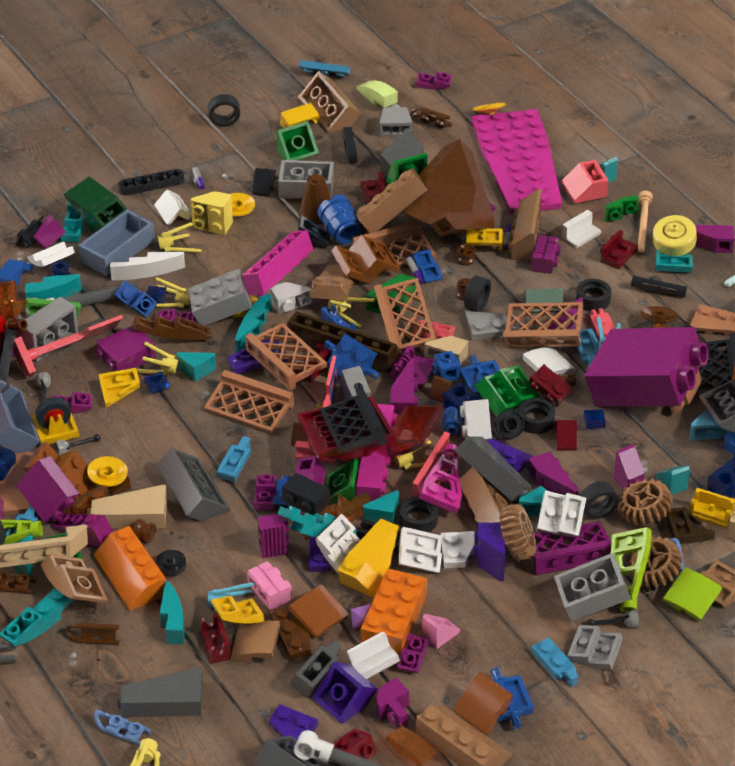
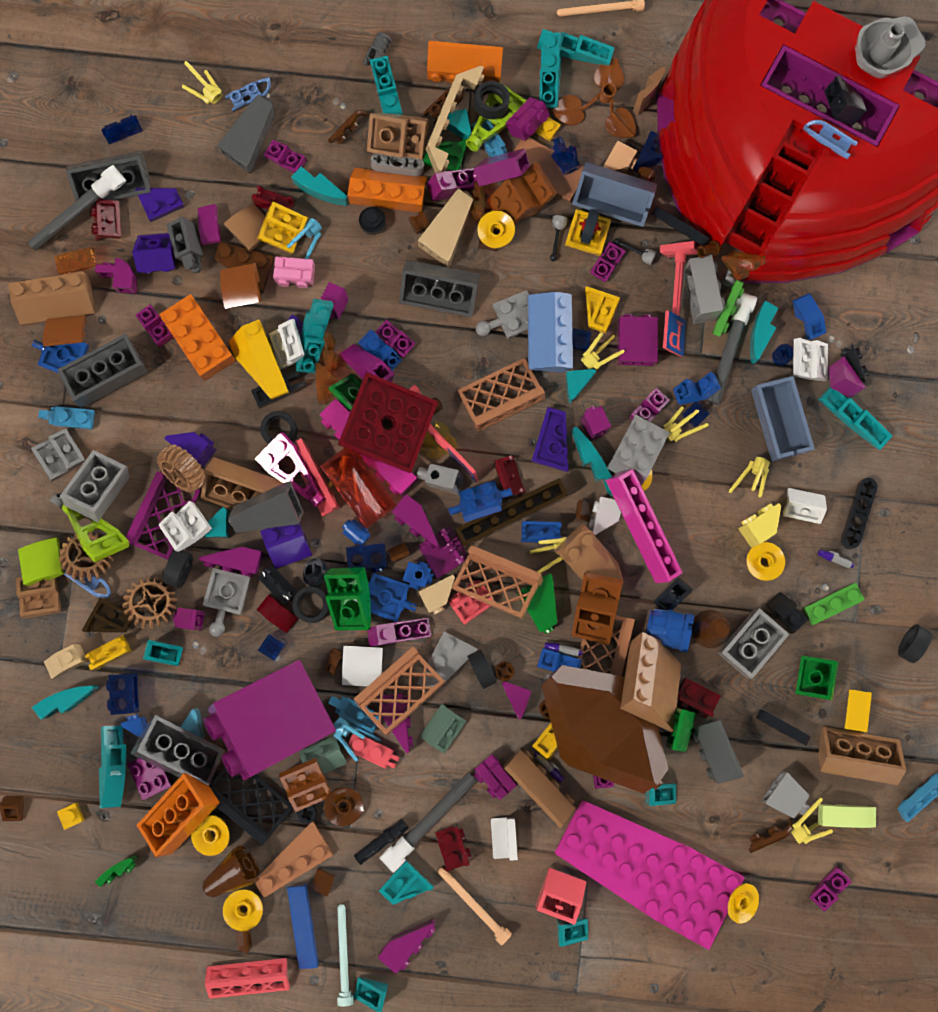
camera: 125 degrees right, 40 degrees up
(94, 203) = (845, 429): dark green slope -> none
(108, 580) = (403, 170): none -> light grey beam
(142, 267) = (734, 434): white slope -> none
(163, 658) = (284, 157): none -> magenta slope
(167, 394) = (550, 332): none -> medium blue slope
(173, 432) = (511, 316): none -> light grey plate
(177, 329) = (633, 390): reddish brown slope -> none
(221, 330) = (595, 422): none -> magenta brick
(232, 164) = (833, 603): none -> bright green plate
(235, 460) = (444, 338): dark azure hinge -> none
(273, 361) = (525, 435): nougat fence -> none
(281, 670) = (208, 224): none -> magenta slope
(303, 308) = (583, 511): none -> reddish brown slope
(305, 494) = (347, 346): black brick -> none
(358, 615) = (213, 313): medium lavender slope -> none
(366, 417) = (367, 435): black fence -> none
(372, 655) = (165, 290): white panel -> none
(382, 508) = (303, 406): teal slope -> none
(410, 102) = (803, 833): none -> light yellow plant
(420, 550) = (240, 400): white slope -> none
(438, 630) = (158, 358): bright pink slope -> none
(457, 548) = (227, 435): white wing -> none
(476, 419) = (332, 543): white brick -> none
(479, 267) = (518, 697): none -> magenta slope
(492, 648) = (102, 371): none -> dark grey slope
(504, 355) = (399, 632): none -> magenta slope
(543, 440) = (277, 584): none -> black hinge
(550, 385) = (329, 638): dark red bracket -> none
(586, 467) = (226, 593): none -> light grey plate
(594, 285) = (398, 774): black tyre -> none
(620, 207) = (504, 893): green slope -> none
(658, 272) = (396, 854): none -> dark grey piece
(674, 235) = (420, 905): light yellow wheel -> none
(722, 298) = (323, 882): none -> reddish brown slope

